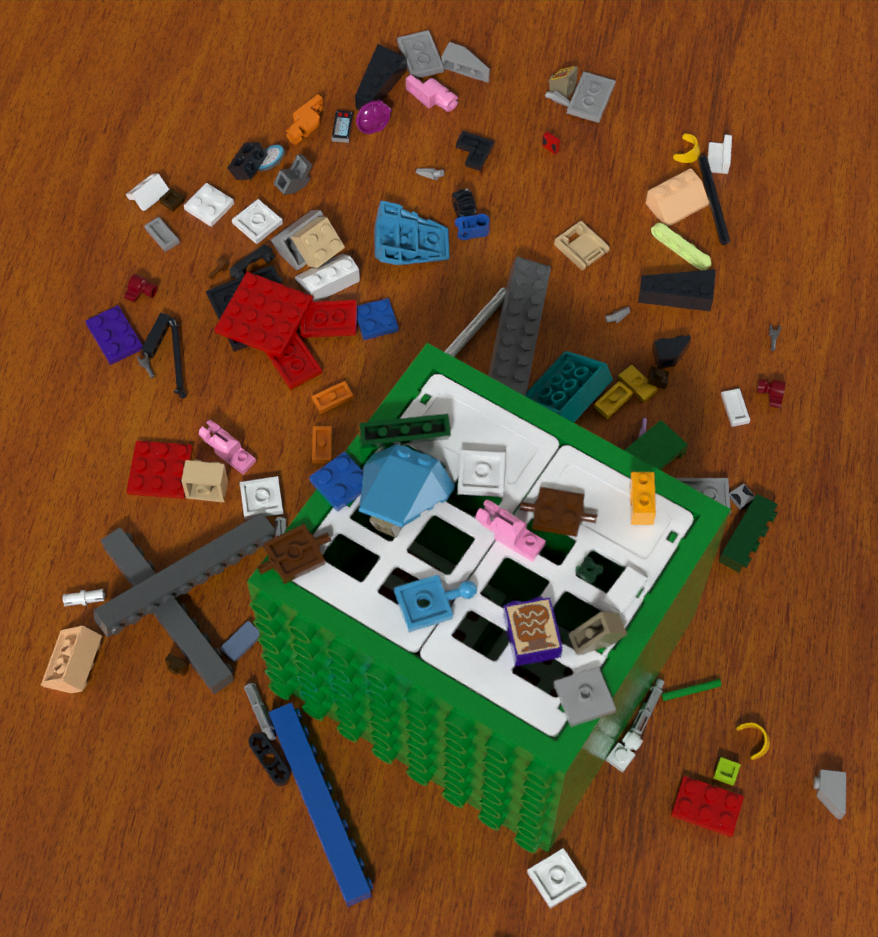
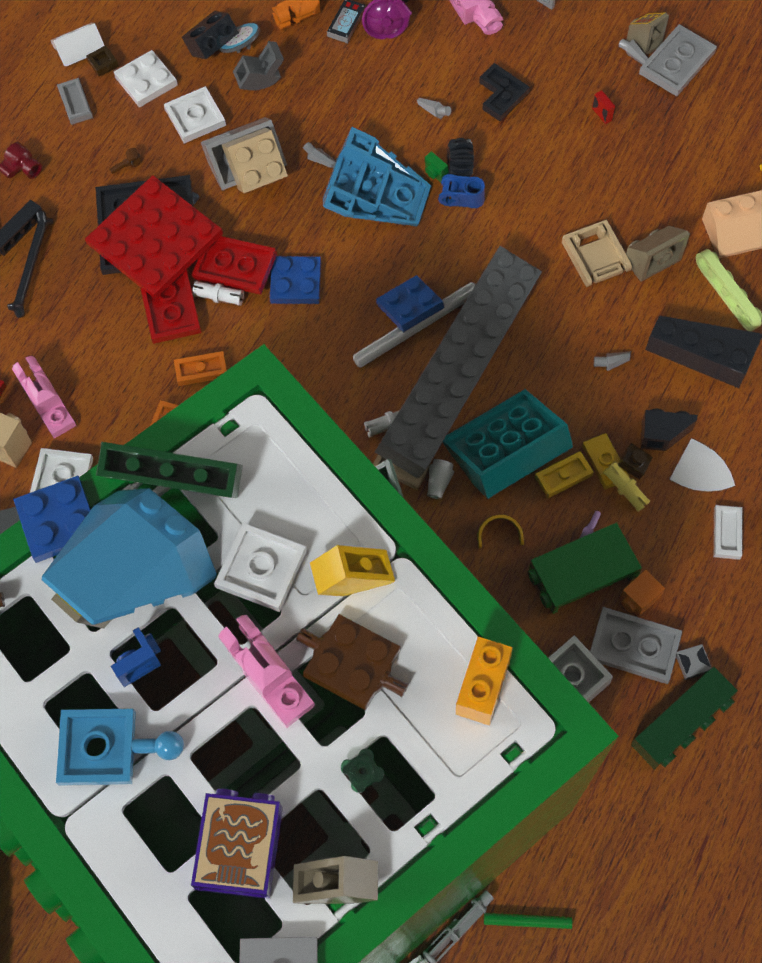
camera: 20 degrees right, 5 degrees up
(263, 252) = (185, 155): black piece -> none
(324, 342) = (218, 293): none -> white pin
(329, 277) = (255, 210): white slope -> none
(359, 228) = (318, 155): none -> light grey bar
(429, 547) = (137, 663): none -> blue bracket
(448, 214) = (435, 166): none -> green plate
(464, 313) = (410, 303): none -> blue plate
(537, 459) = (351, 570): none -> yellow slope
(624, 232) = (657, 251): none -> dark tan slope
(624, 590) = (404, 821): white tile -> none
(658, 395) = (626, 486): none -> light yellow pin
(693, 462) = (641, 593): none -> orange brick
(704, 371) = (702, 469): none -> white sticker

